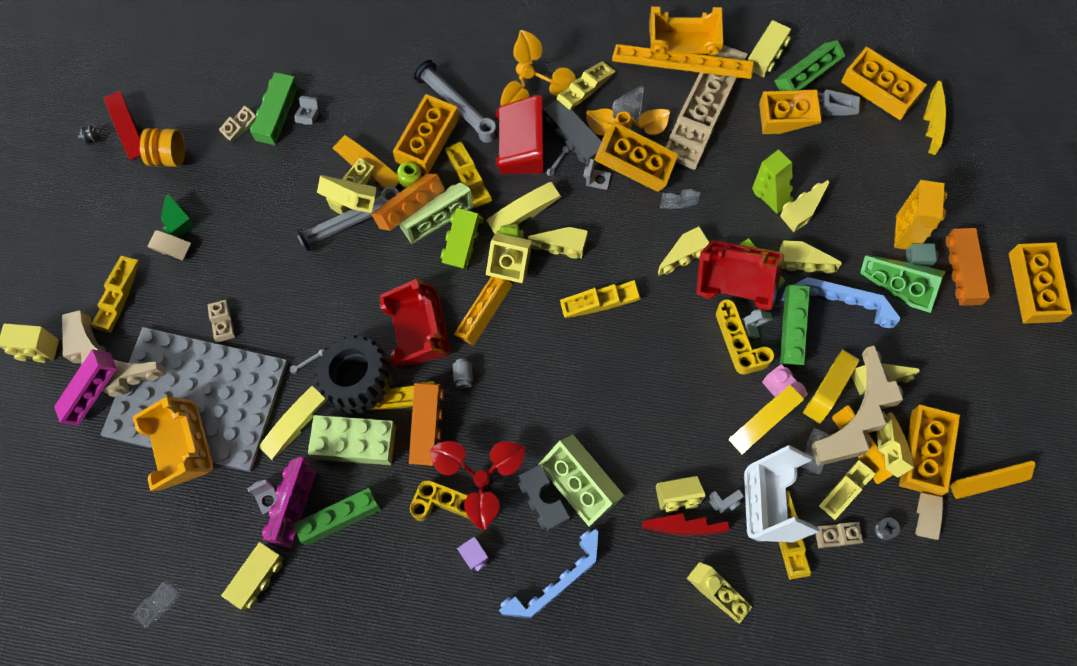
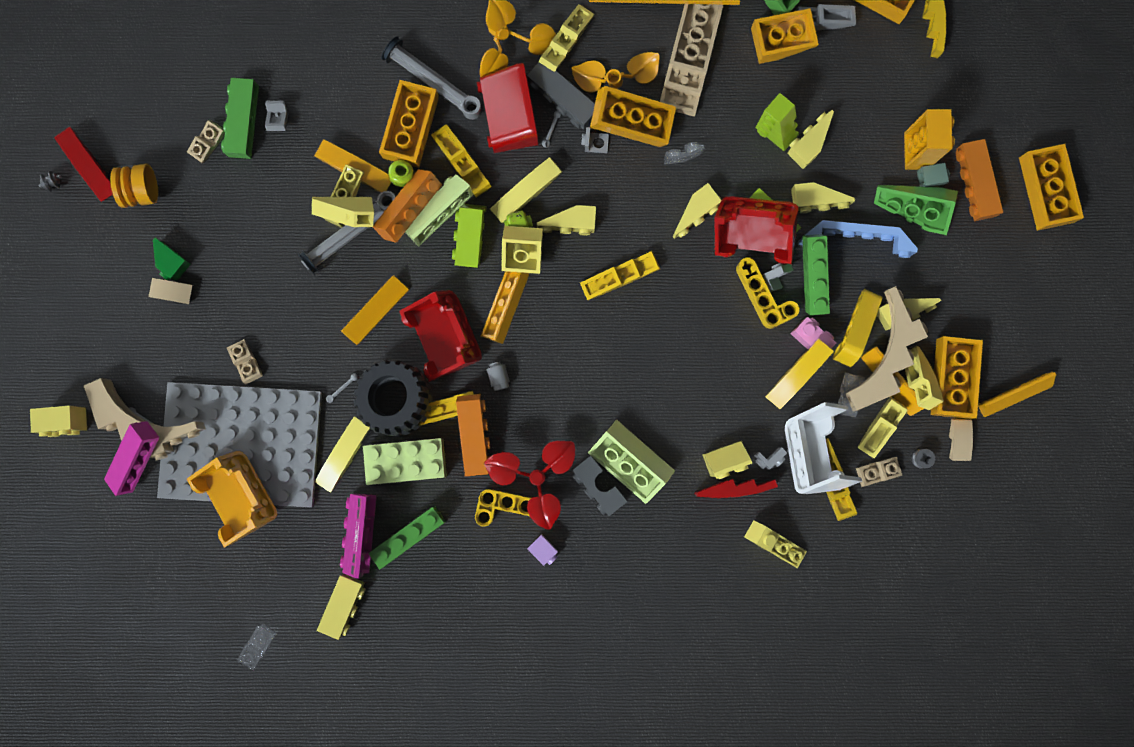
camera: 10 degrees left, 15 degrees up
(116, 294) = (130, 351): yellow slope -> none
(260, 490) = (327, 525): light grey bracket -> none
(356, 293) = (375, 310): none -> light orange slope
(514, 608) = (591, 592): light blue slope -> none
(630, 103) = (615, 54): clear slope -> none

